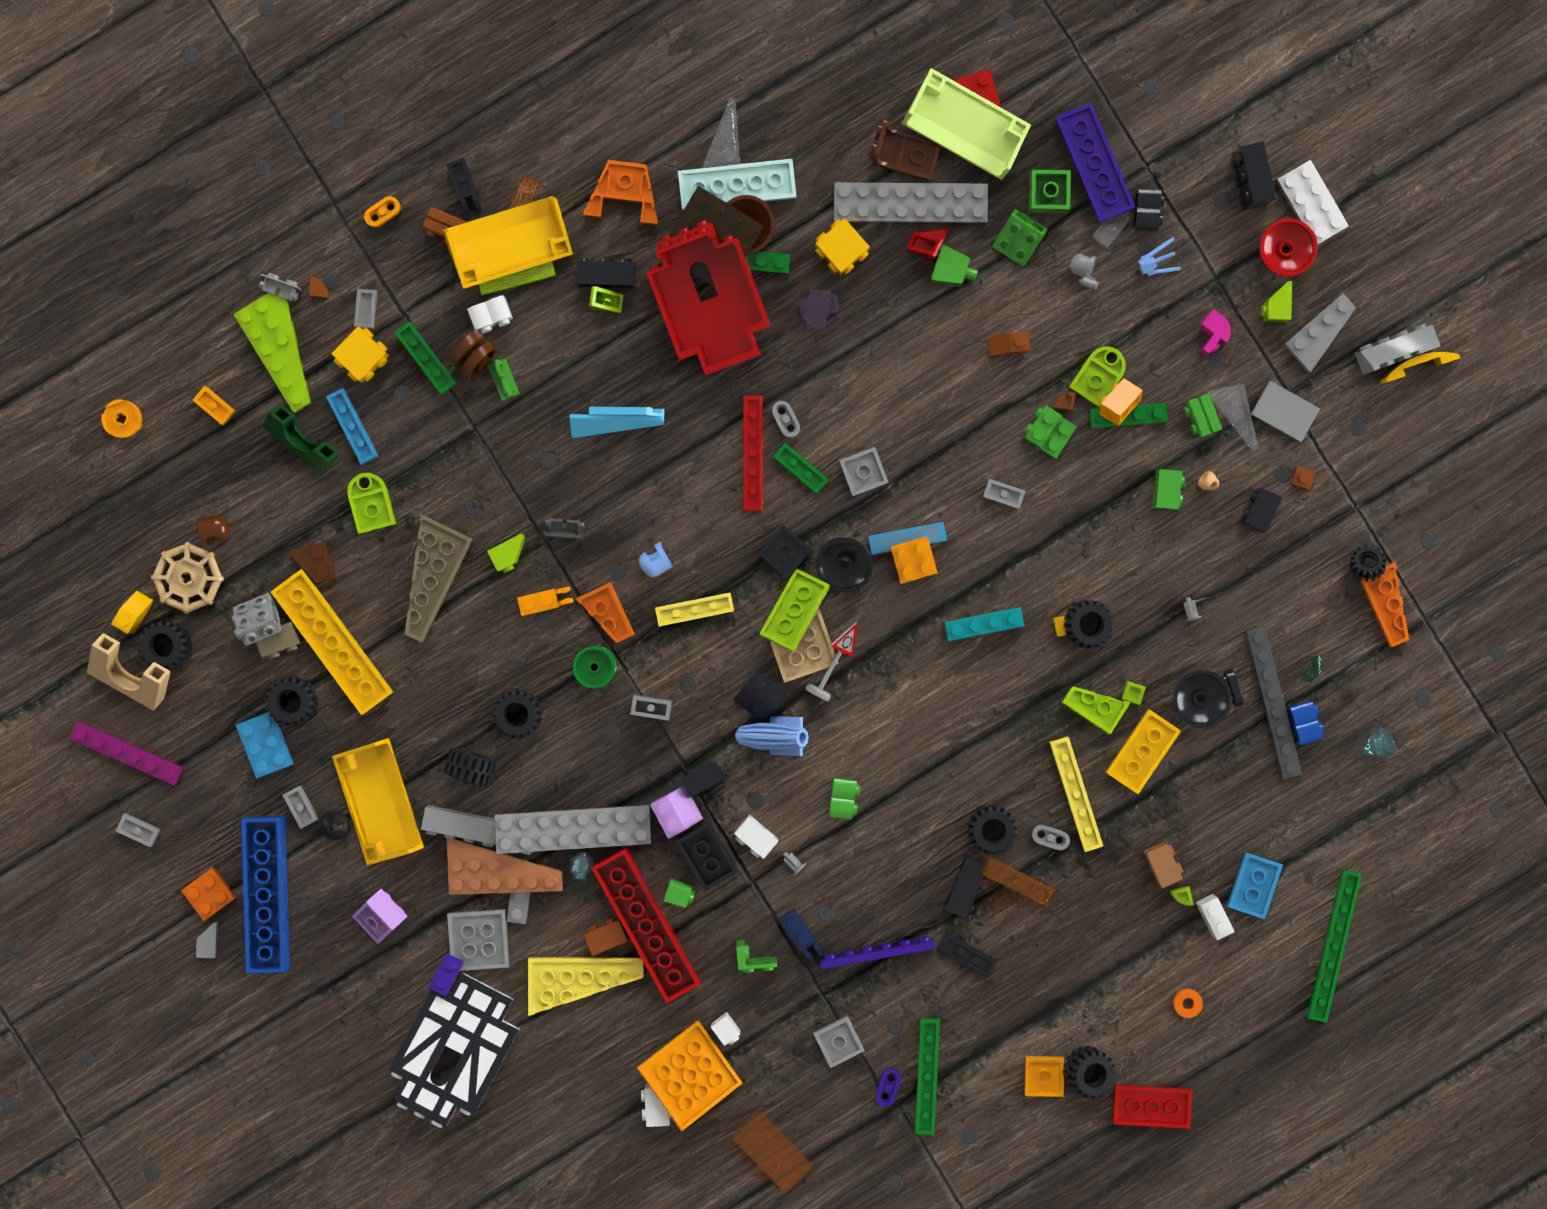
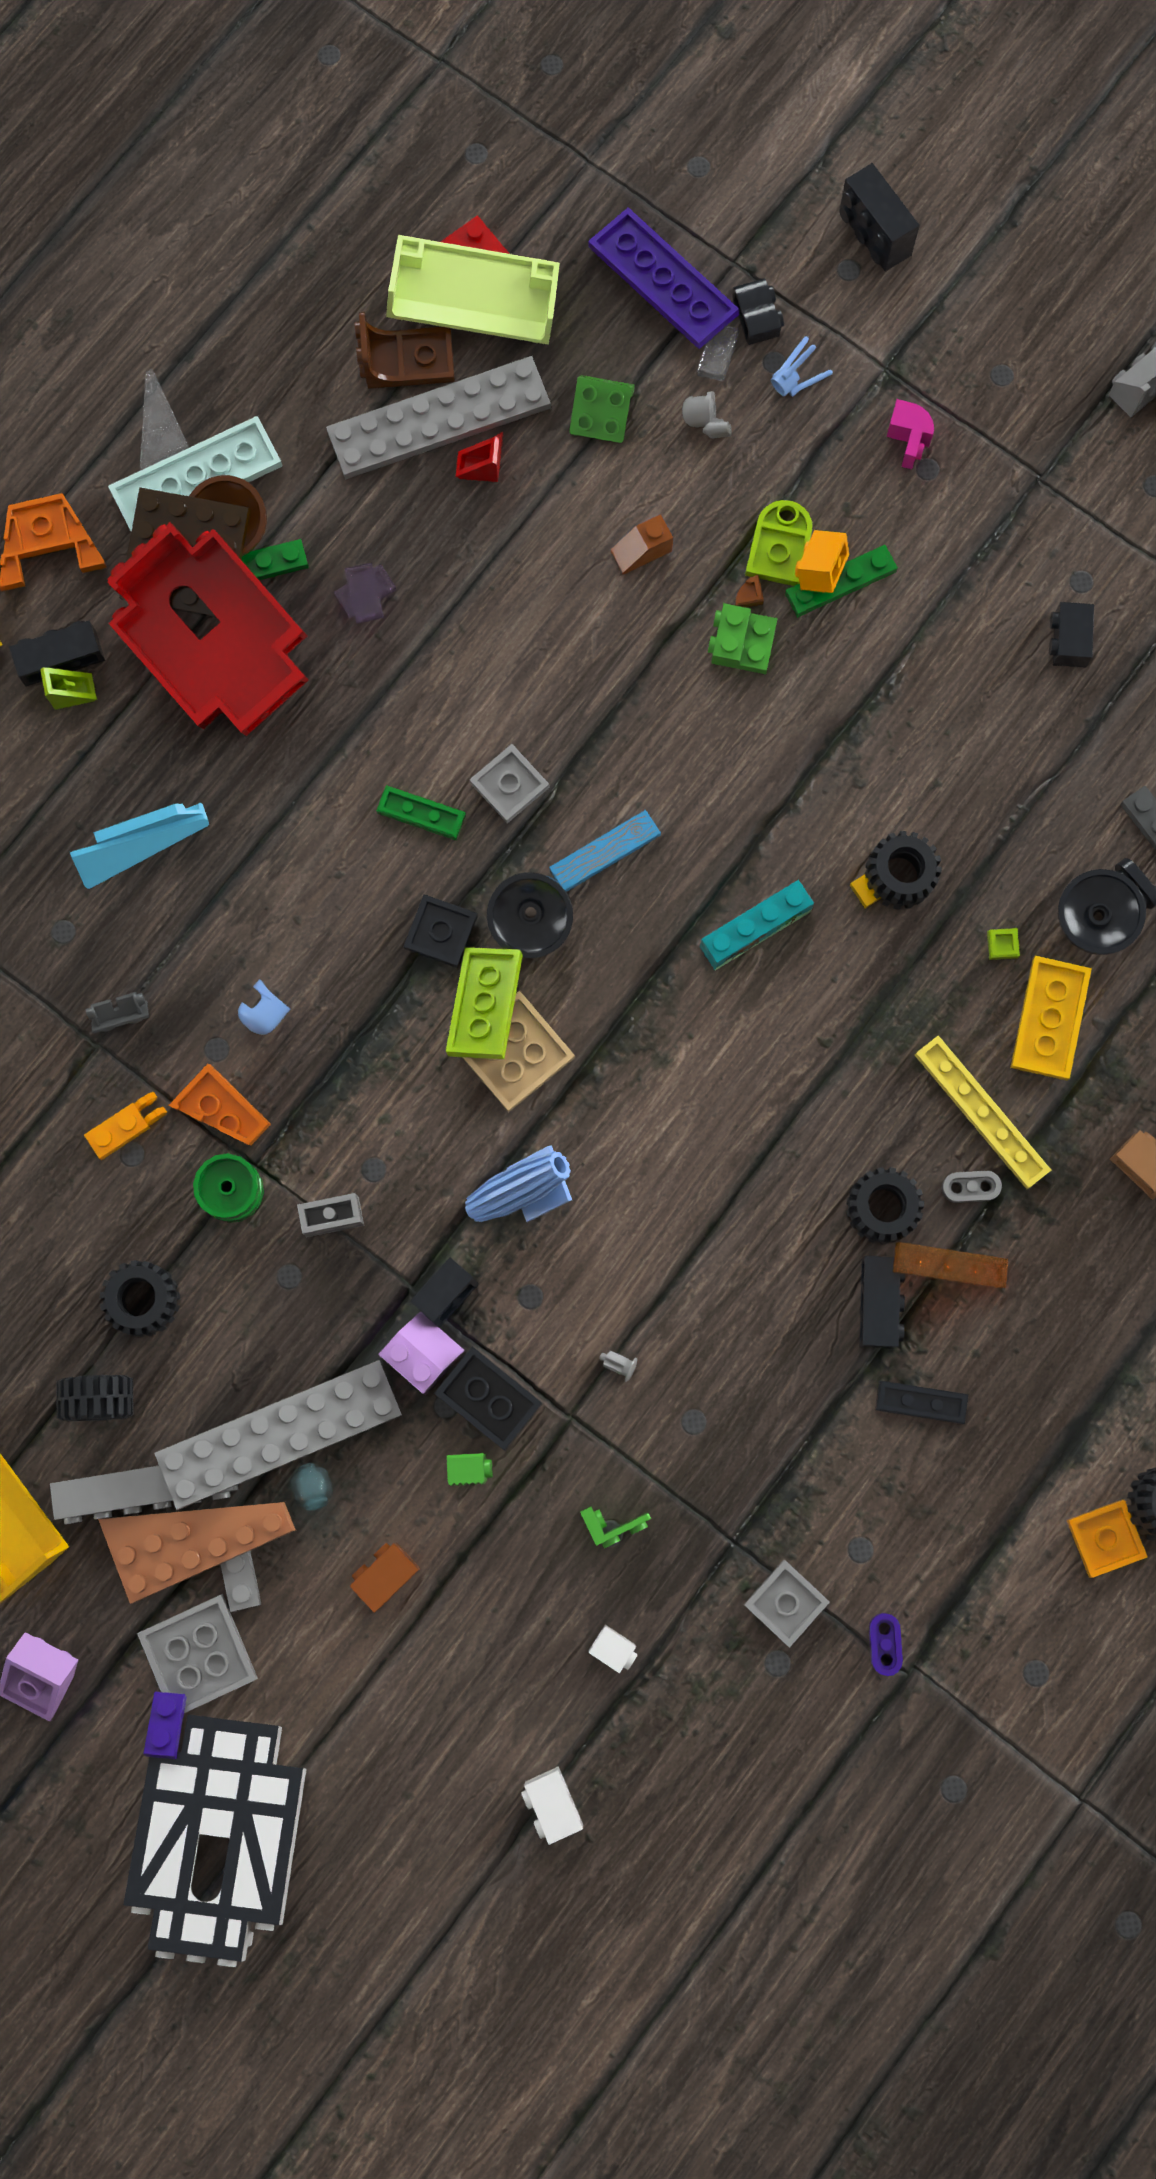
camera: 20 degrees left, 10 degrees down
(507, 553) = (48, 1076): lime slope -> none
(567, 979) = (351, 1664): light yellow wing -> none
(646, 925) = (437, 1535): red brick -> none
(689, 1075) = (584, 1740): light orange tile -> none
(694, 609) = (343, 1057): light yellow plate -> none
(752, 453) = (347, 817): red tile -> none
(756, 837) = (550, 1346): white brick -> none
(760, 696) = (480, 1142): black slope -> none
(772, 1151) = (753, 1811): clear orange tile -> none
(786, 419) = (376, 754): light grey plate -> none
(800, 933) = (668, 1464): dark blue hinge -> none
(841, 247) = (366, 501): yellow brick -> none
(843, 798) = (655, 1243): bright green brick -> none
(844, 644) = (574, 1025): light grey piece -> none
(869, 953) = (801, 1440): dark purple plate -> none
(913, 559) = (625, 875): light orange plate -> none
(927, 1076) = (936, 1606): green plate -> none
(952, 268) = (526, 477): bright green torso -> none
(1003, 493) = (714, 742): light grey plate -> none
(1049, 191) = (617, 333): bright green brick -> none
(1097, 709) = (964, 984): lime wing -> none
(1168, 489) = (935, 654): bright green brick -> none
(1191, 610) = (1035, 802): light grey piece -> none
(1202, 416) = (940, 542): bright green brick -> none
(1207, 479) = (982, 624): light nougat tile -> none
(1235, 408) = (981, 518): clear wing -> none
(1279, 305) = (982, 368): lime slope -> none
(1285, 411) = (1048, 499): light grey tile -> none
(1298, 240) = (964, 276): red dish -> none
(1302, 478) = (1110, 575): dark orange plate -> none
(1312, 201) = (970, 229): white plate -> none
(1316, 336) = (1049, 388): light grey wing -> none

